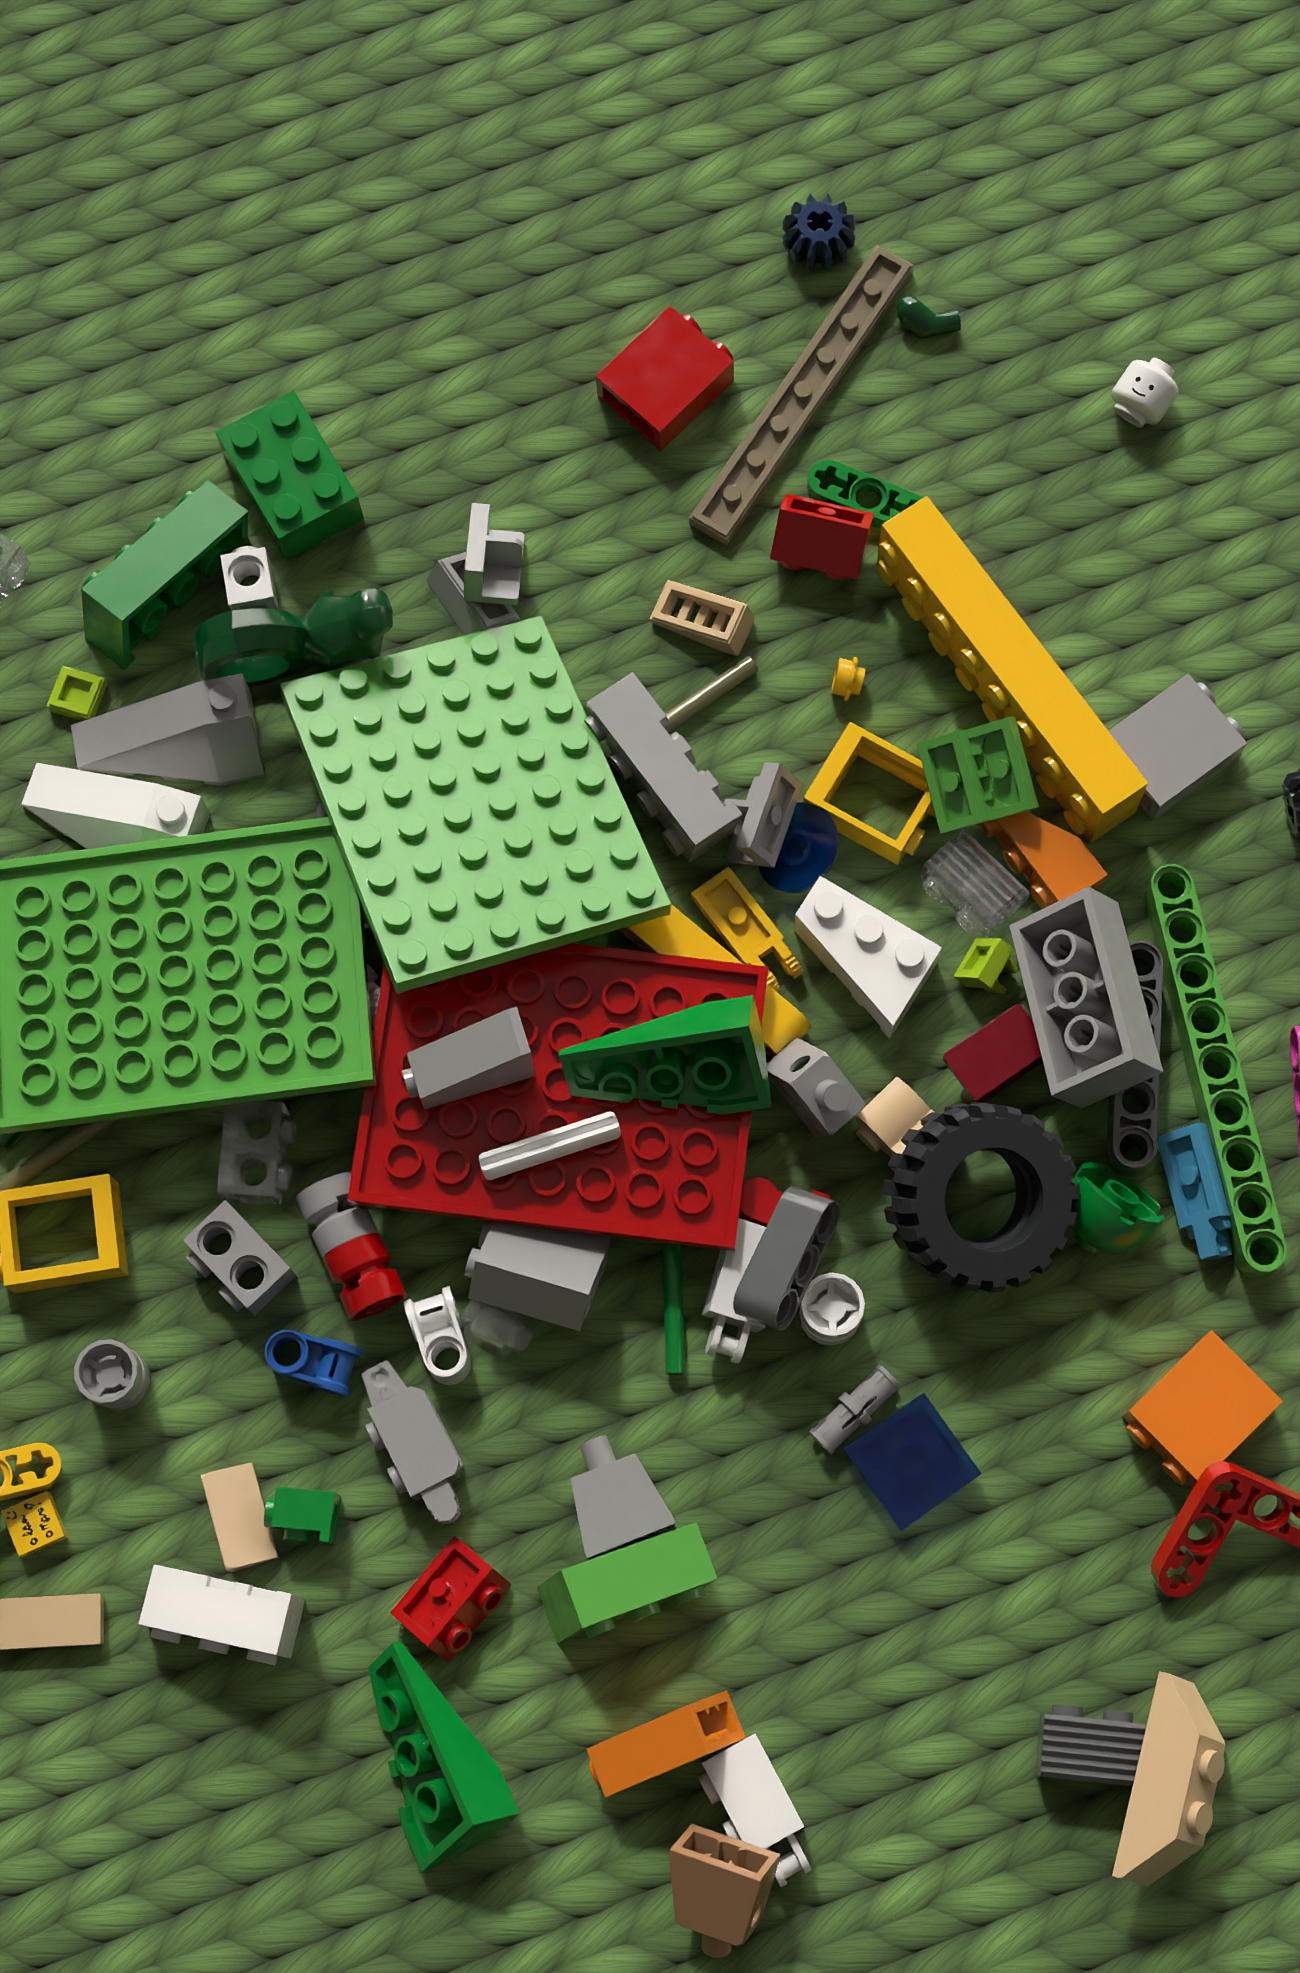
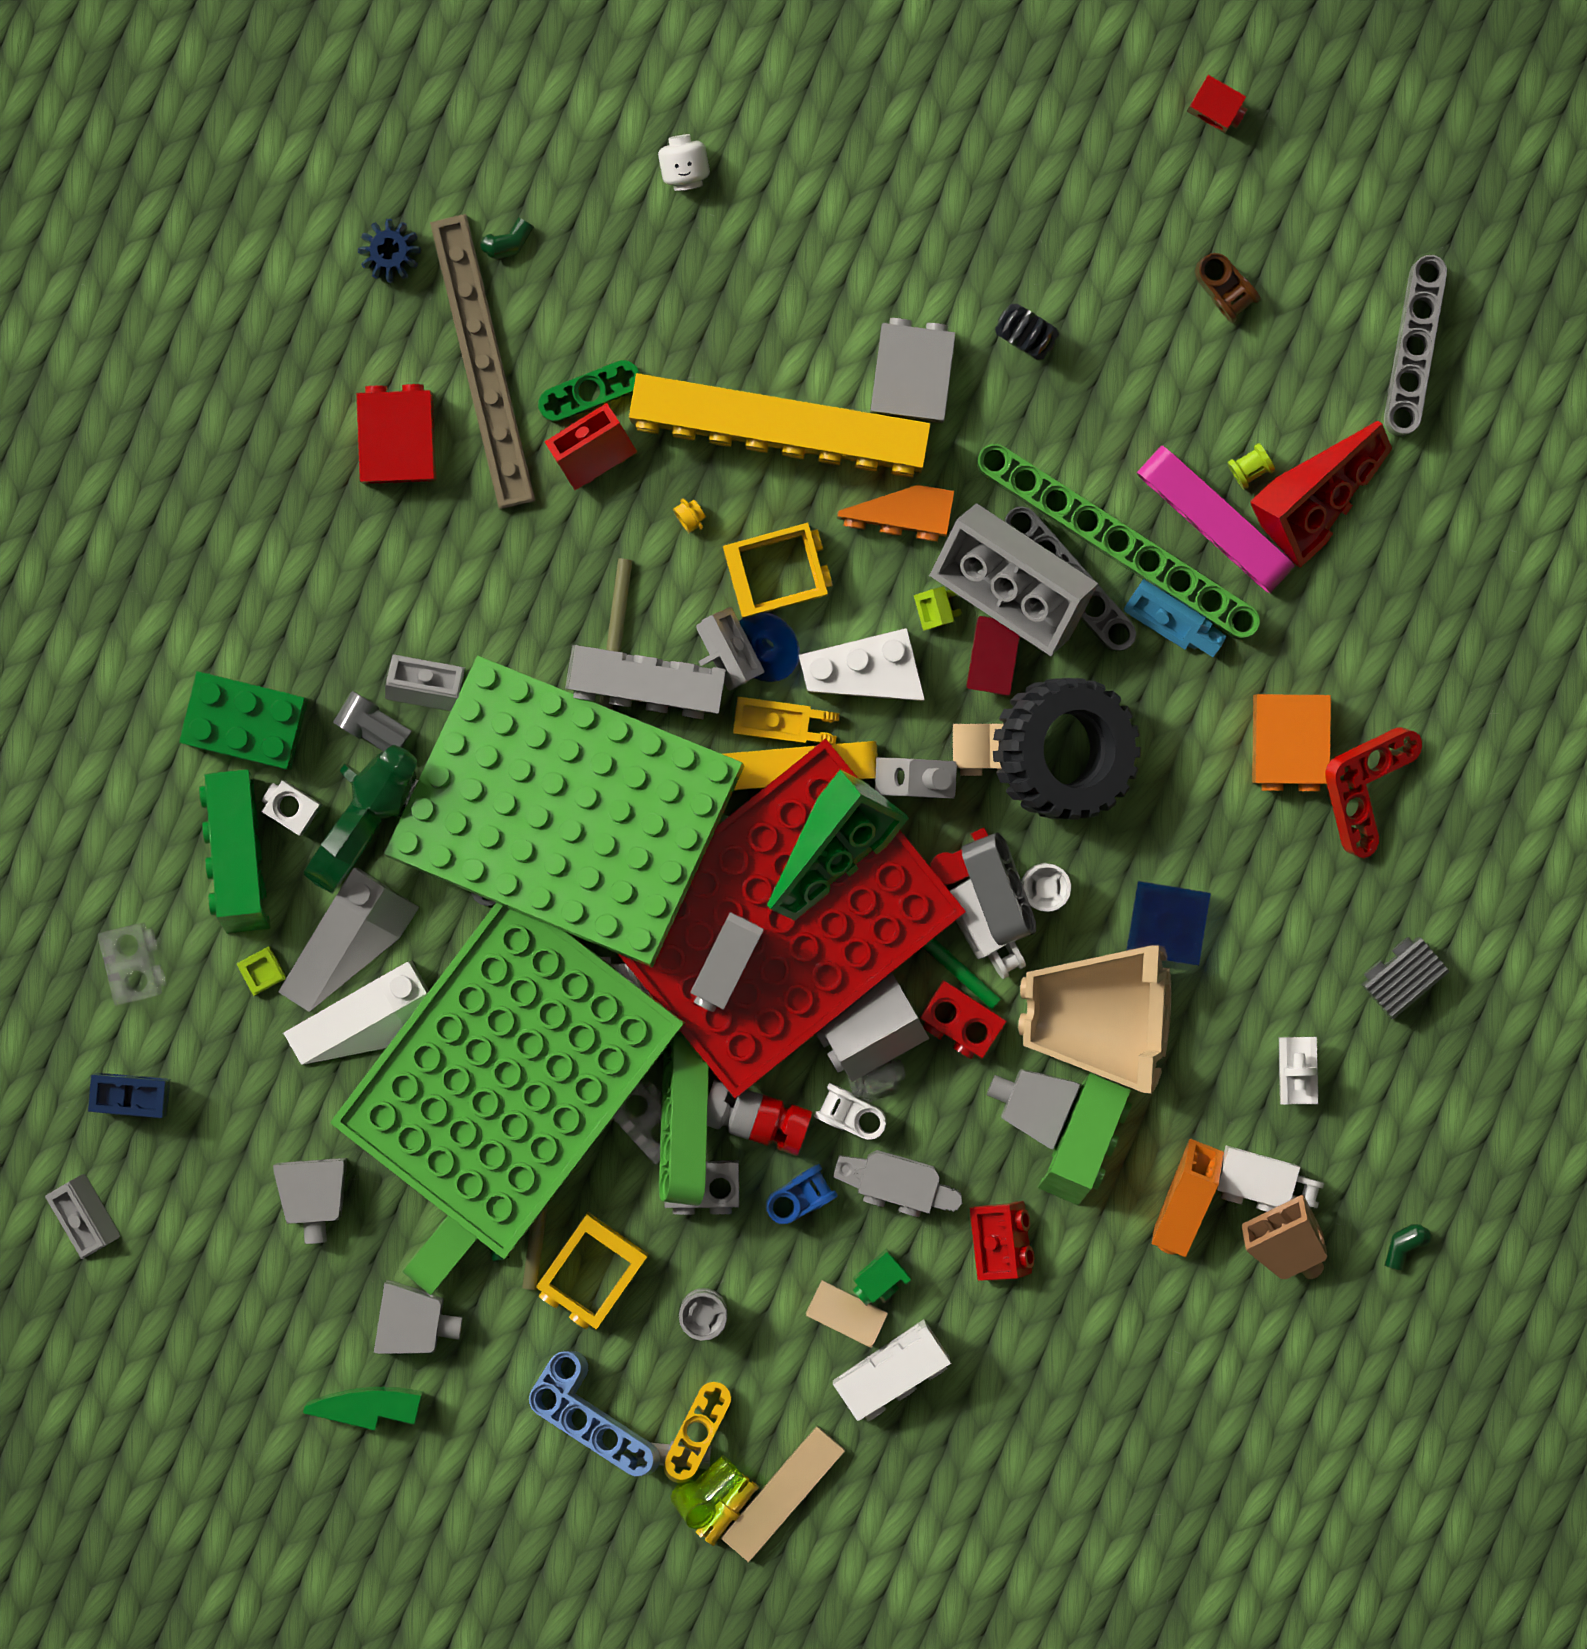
camera: 55 degrees left, 15 degrees up
(34, 1524) = (742, 1429): yellow tile -> none
(276, 1178) = (683, 1124): none -> bright green beam
(390, 570) = (366, 721): none -> dark grey piece
(445, 1774) = (1091, 1329): green wedge -> none
(492, 561) = (417, 652): light grey panel -> none
(549, 1145) = (813, 959): white axle -> none
(639, 1351) = (966, 1012): none -> red brick
(728, 630) = (596, 547): tan slope -> none
(767, 1480) = (1102, 1014): none -> tan cone
(855, 1409) = (1110, 921): light grey pin -> none
(897, 1730) = (1298, 1070): none -> white hips
(973, 885) = (883, 568): clear brick -> none
(977, 775) = (828, 509): bright green slope -> none
(1112, 1212) = (1141, 678): green cylinder -> none
(1171, 1785) = (1462, 954): tan wedge -> none

